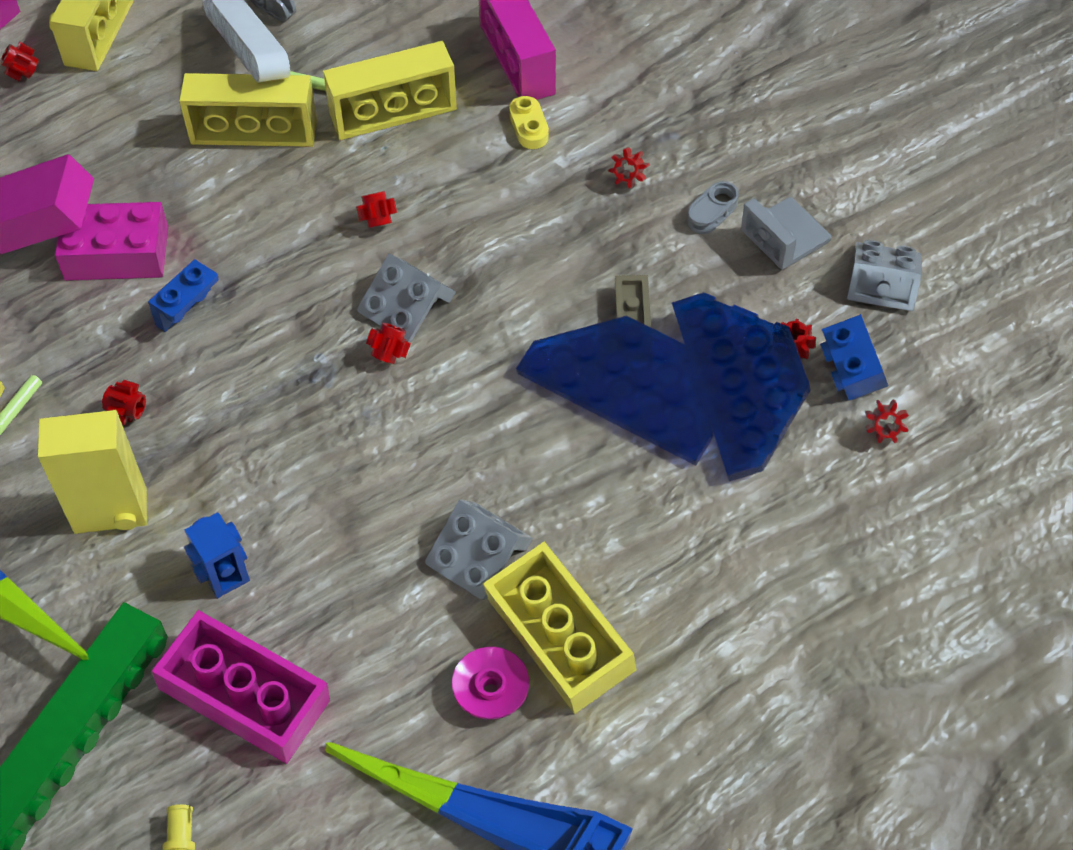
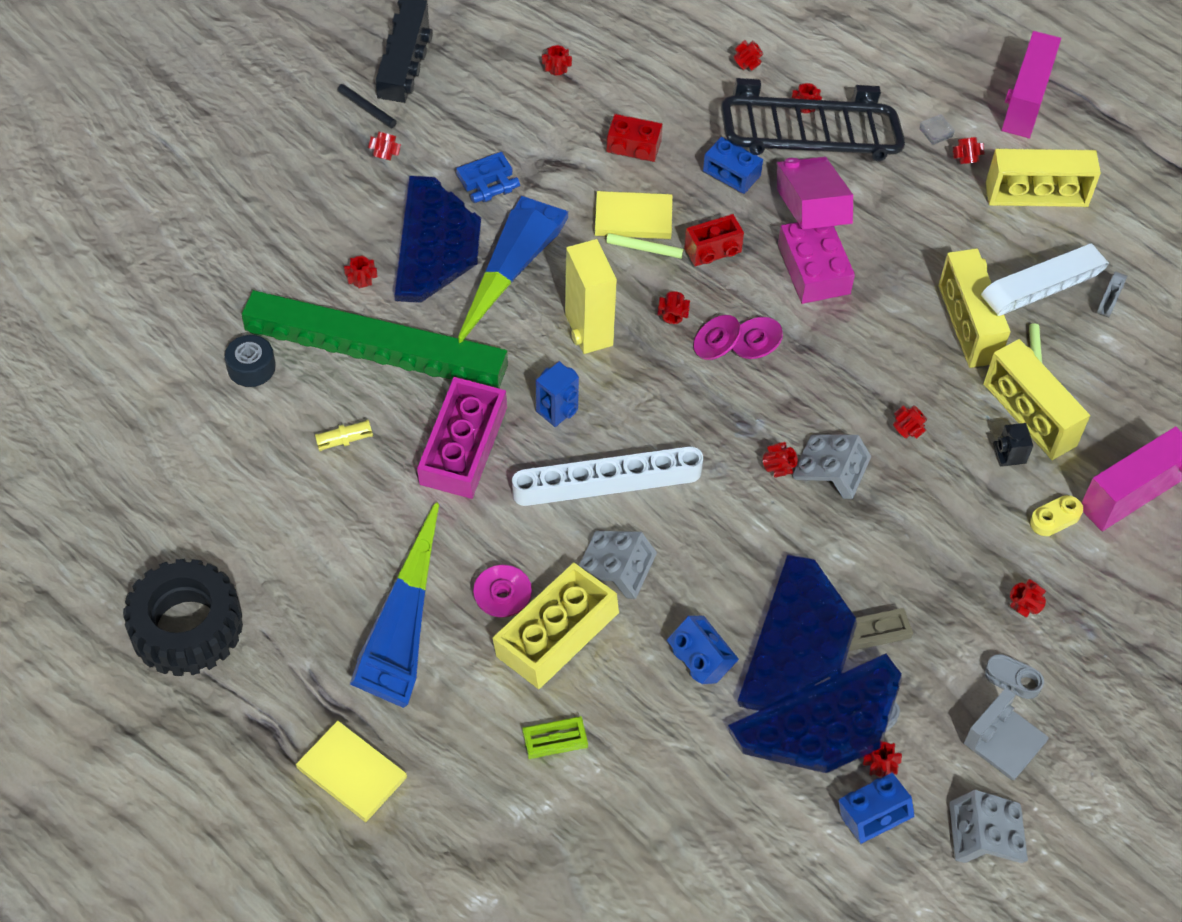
camera: 75 degrees right, 0 degrees up
(40, 334) = (714, 240): none -> red brick
(174, 365) = (717, 337): none -> dark pink dish
(181, 294) = (780, 313): blue bracket -> none
(191, 327) = (758, 338): none -> dark pink dish
(355, 543) = (594, 479): none -> white beam
(436, 129) = (1013, 445): none -> black brick
(629, 477) = (702, 650): none -> blue brick
(705, 693) = (556, 748): none -> lime tile
(890, 430) = (818, 843): red gear -> none

